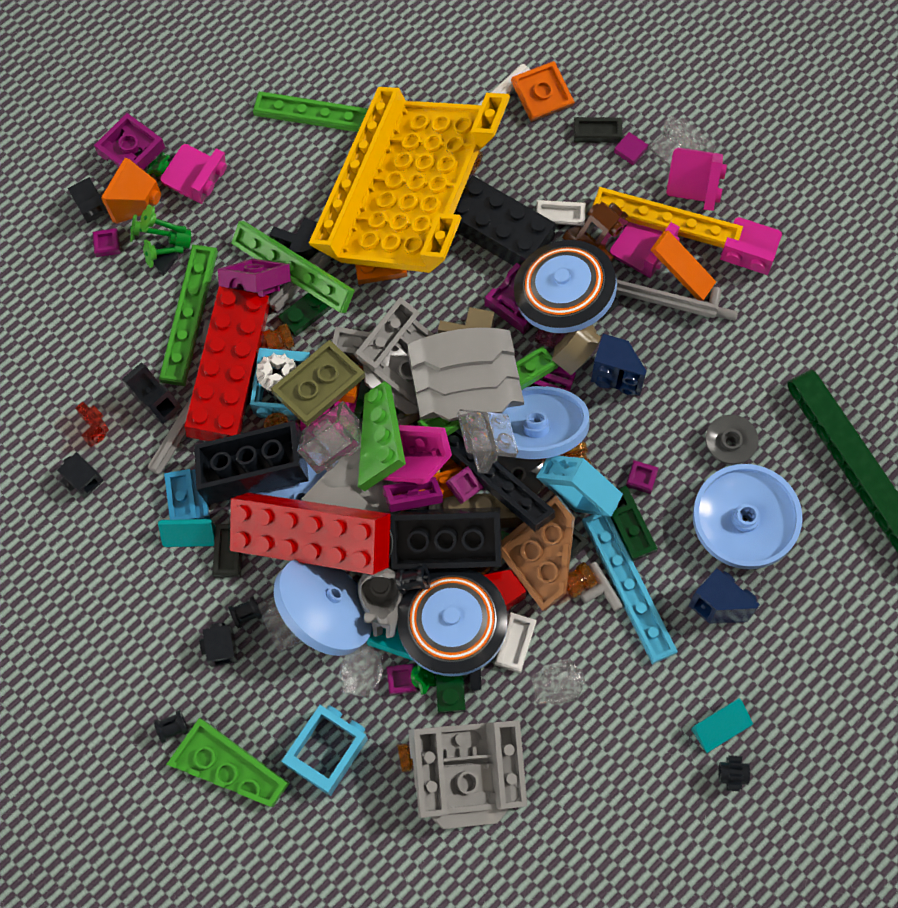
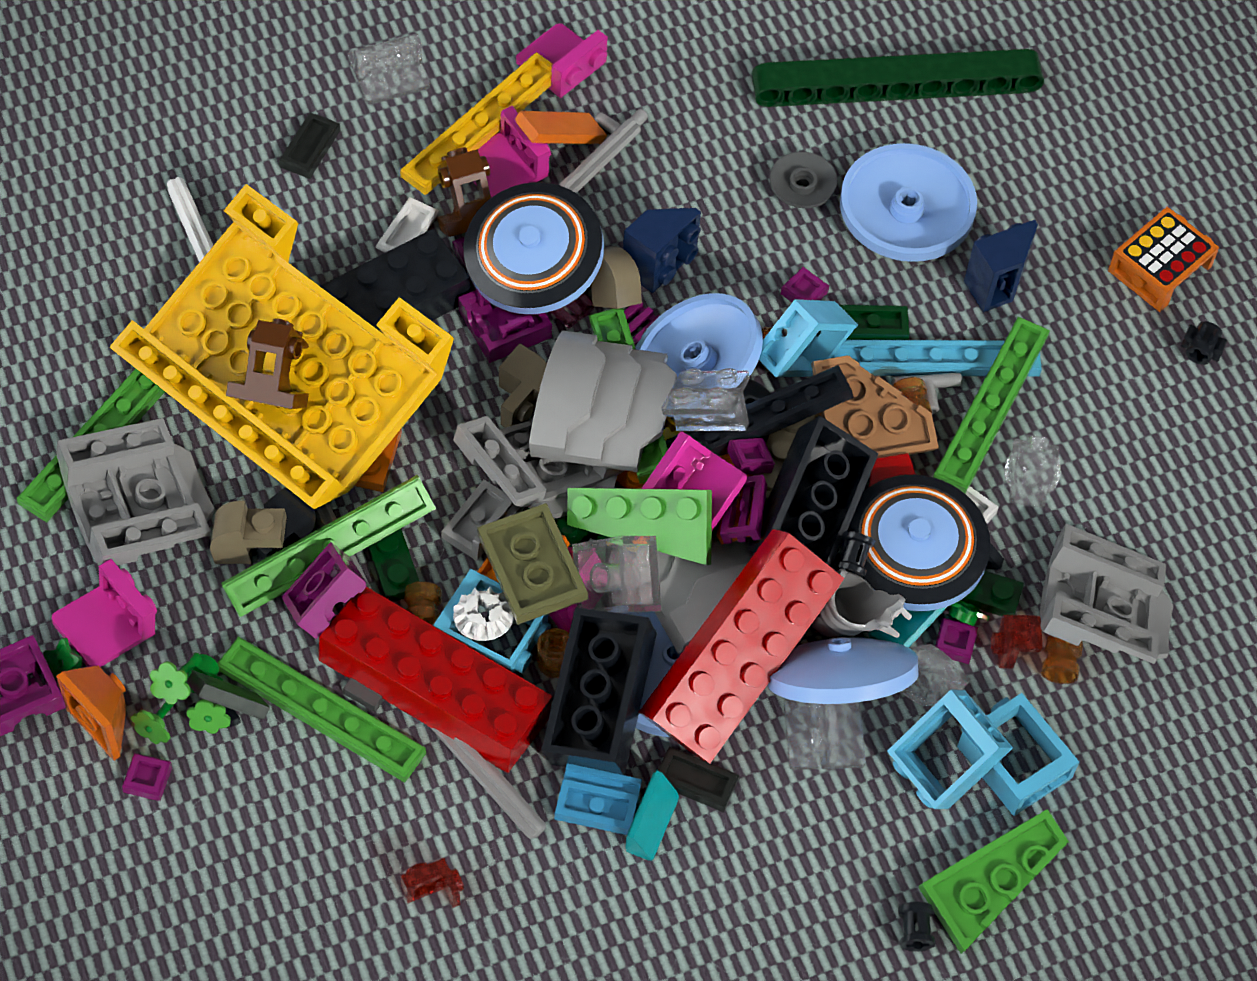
camera: 75 degrees left, 10 degrees down
(79, 475) = (504, 925): black brick -> none
(88, 200) = (70, 772): black brick -> none
(151, 393) = (432, 789): black brick -> none
(165, 256) = (228, 695): none -> pearl dark grey tile
(219, 645) = (828, 828): black brick -> none
(245, 612) = (795, 783): black bush -> none
(281, 217) = (242, 529): none -> dark tan brick
(285, 150) = (133, 491): none -> light grey slope
(313, 707) = (976, 725): none -> medium azure window
(394, 167) = (275, 389): none -> reddish brown tile
(411, 716) = (1016, 635): none -> clear red bracket
(542, 91) = (219, 173): orange tile -> none
(602, 636) = (991, 404): none -> bright green tile
(631, 148) = (357, 122): magenta tile -> none
(696, 176) = (448, 64): dark pink bracket -> none
(722, 725) = (1140, 335): teal slope -> none
(800, 717) = (1162, 257): none -> panel

